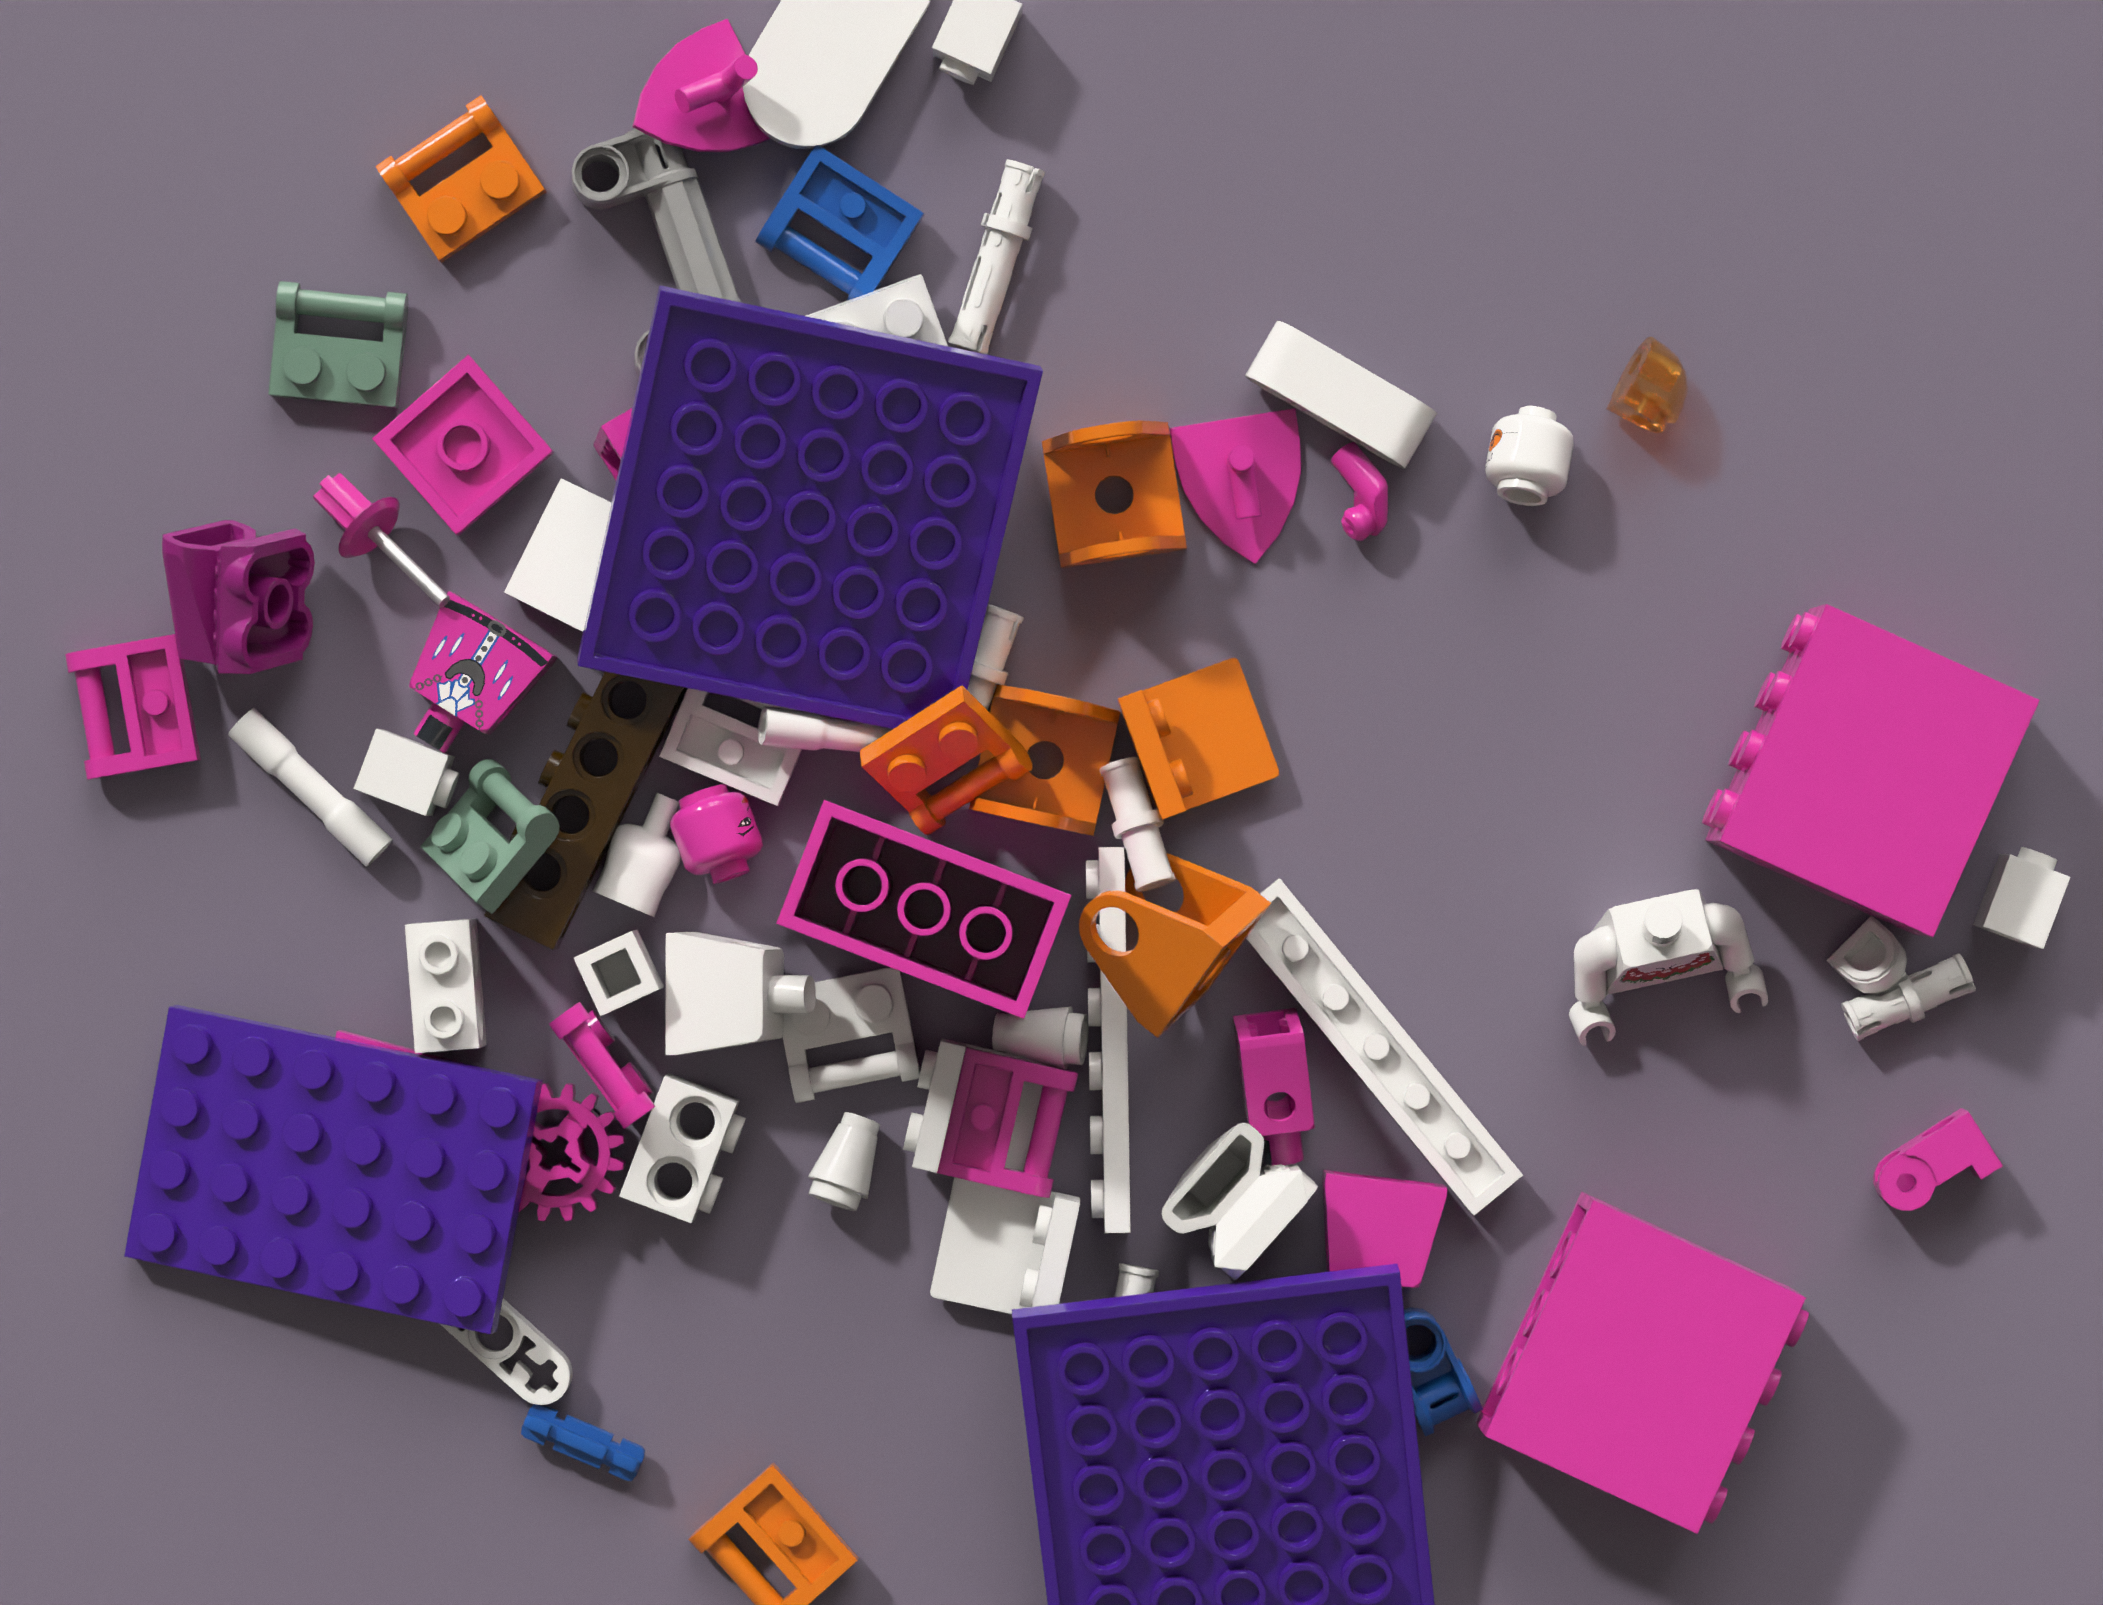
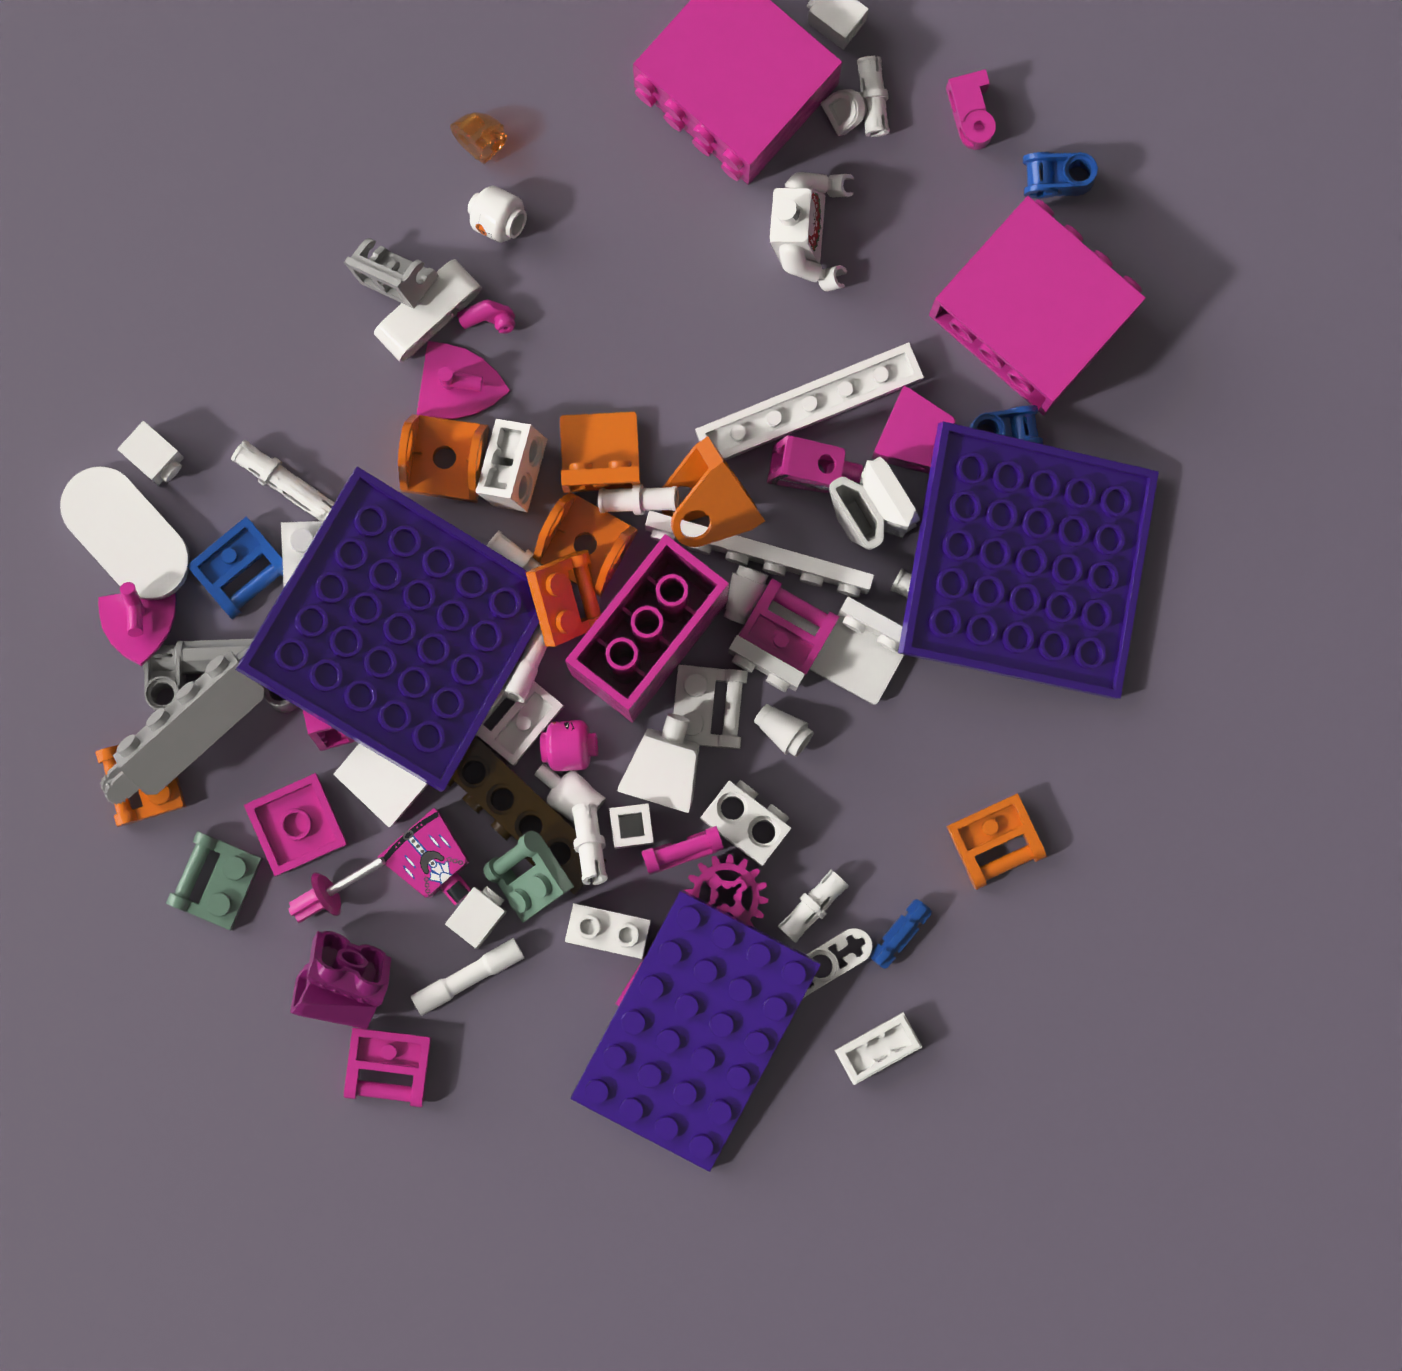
camera: 80 degrees left, 5 degrees down
(393, 1460) = (878, 1048): none -> white plate
(551, 224) = (182, 730): none -> light grey hinge
(567, 917) = (589, 844): none -> white pin
(584, 1292) = (813, 905): none -> white pin
(1130, 607) = (511, 465): none -> white brick
(1380, 320) = (391, 273): none -> light grey hinge
(1869, 1327) = (1055, 174): none -> blue piece

